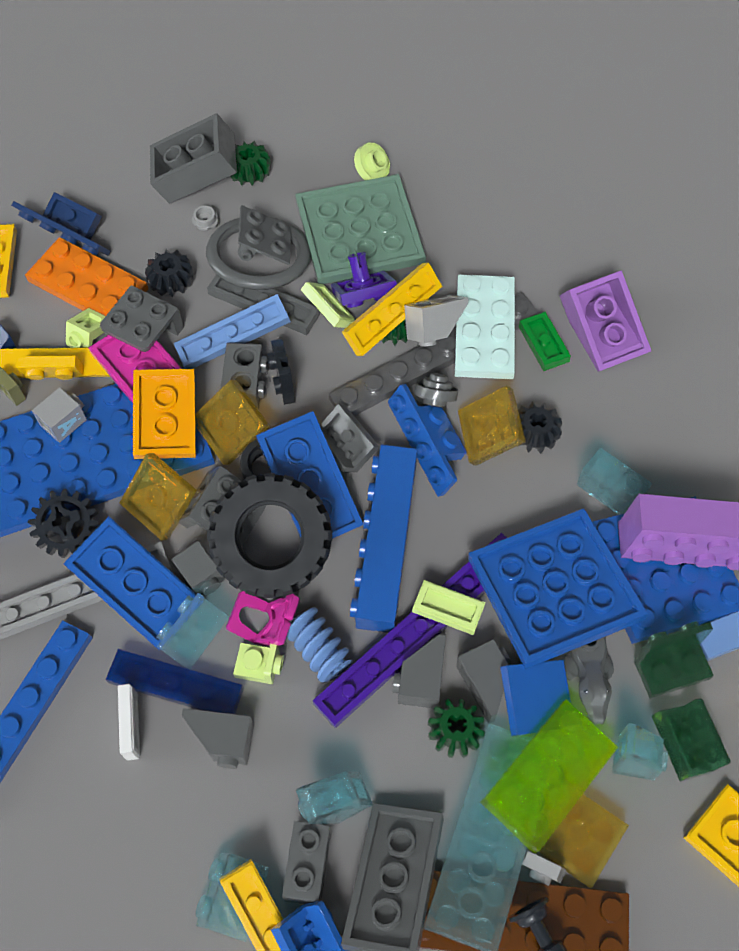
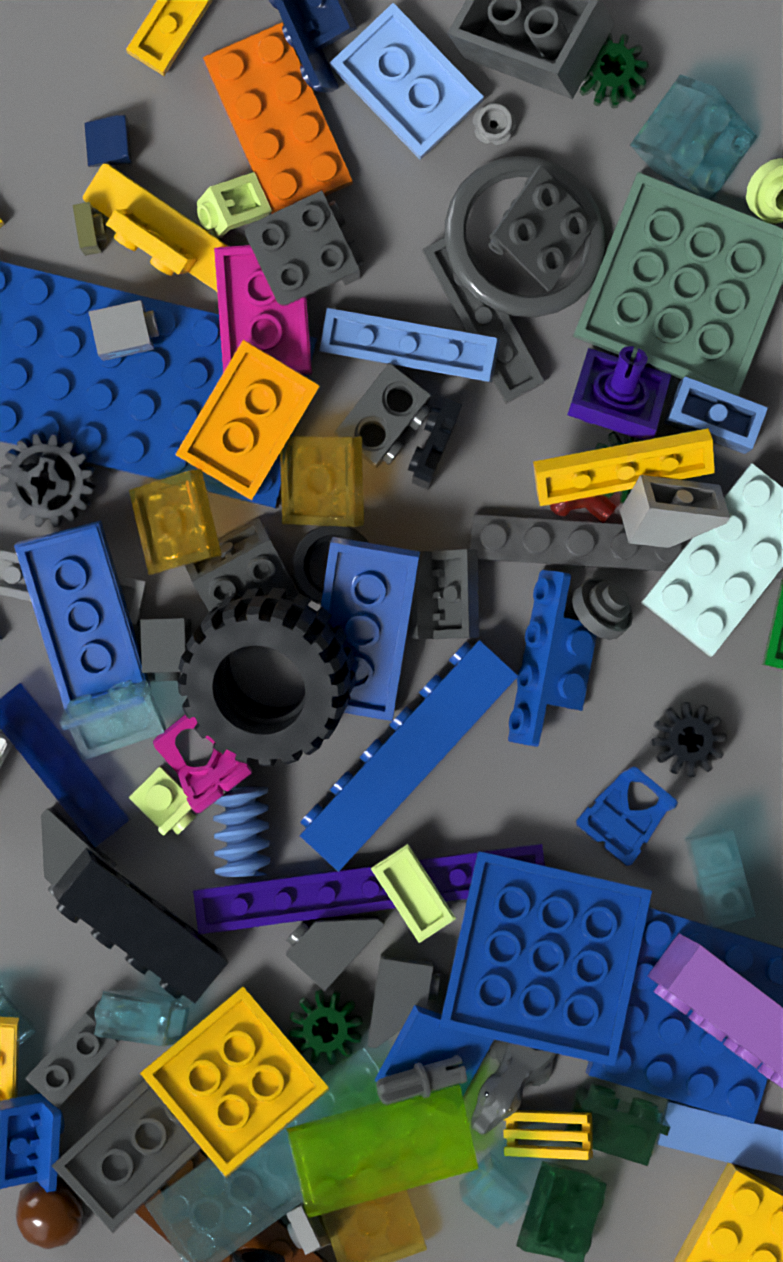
camera: 35 degrees right, 25 degrees up
(144, 225) = (406, 81): none -> light blue plate
(169, 272) = (393, 173): black gear -> none
(291, 740) = (139, 926): none -> black brick
(311, 163) = (694, 138): none -> clear light blue slope
(328, 304) = (558, 379): yellowish green tile -> none
(383, 350) = (596, 505): none -> clear red arm
(424, 798) = (234, 1082): none -> yellow plate
(435, 254) = (730, 418): none -> medium blue brick
(491, 426) = (631, 704): clear yellow plate -> none
(540, 498) = (619, 826): none -> blue piece
(540, 708) = (421, 1080): none -> dark grey axle
(663, 677) = (512, 1135): none -> yellow tile

